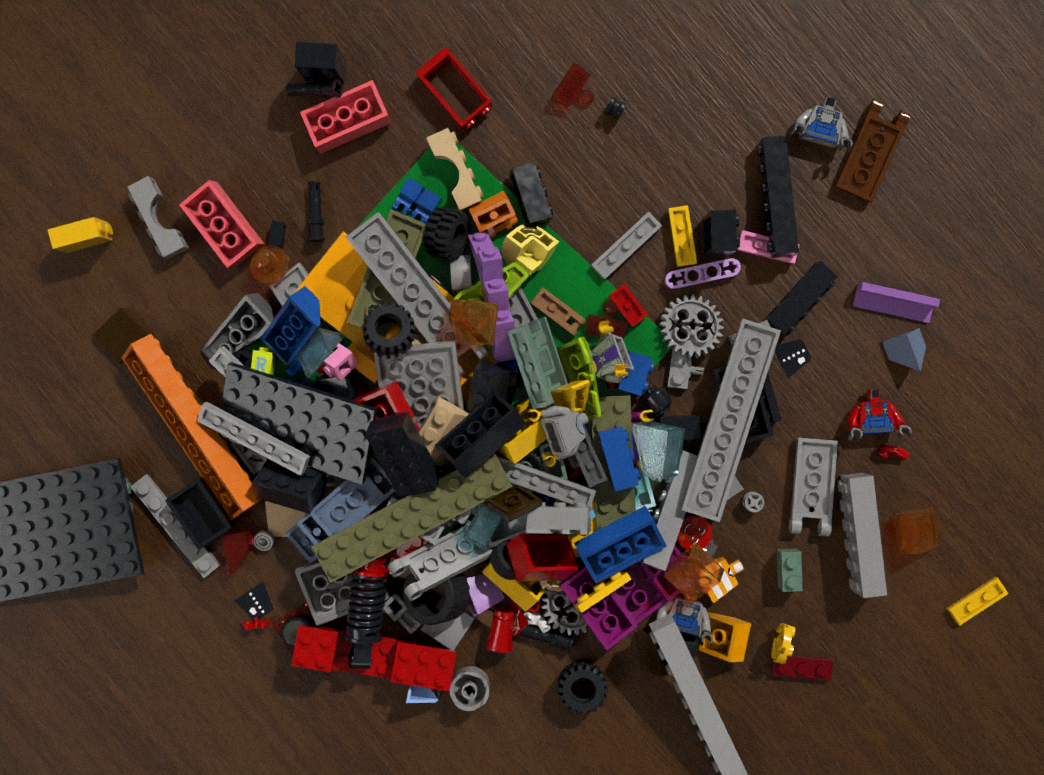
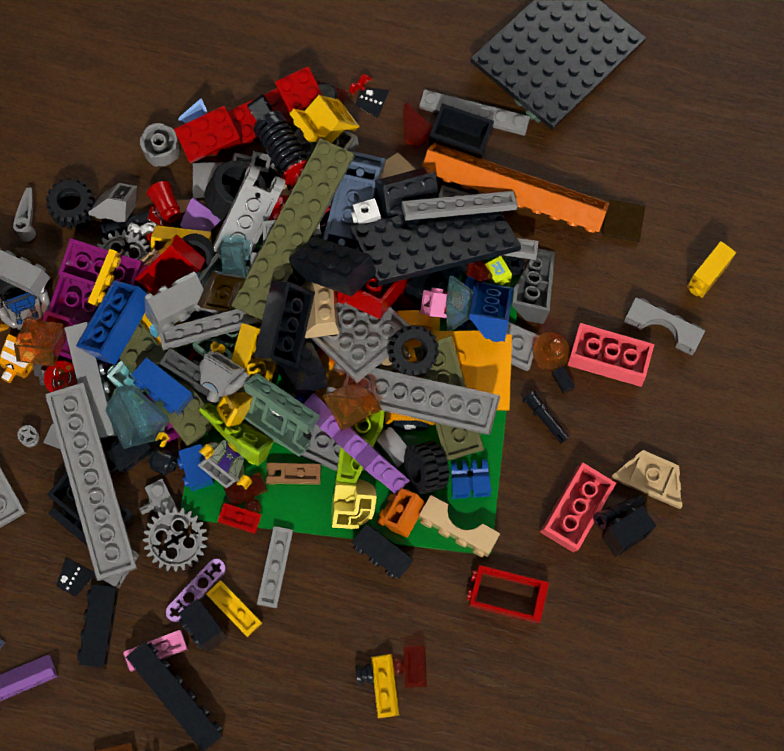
camera: 145 degrees right, 15 degrees down
(263, 540) = (399, 146): light grey tile -> none
(266, 100) = (652, 477): none -> tan wing
(280, 369) = (478, 271): none -> clear red slope
(313, 604) = (324, 119): none -> yellow bracket
(339, 488) = (365, 212): none -> white brick
(545, 659) = (115, 203): none -> light grey slope
(605, 88) = (384, 686): none -> yellow tile
(630, 704) = (24, 217): none -> light grey piece

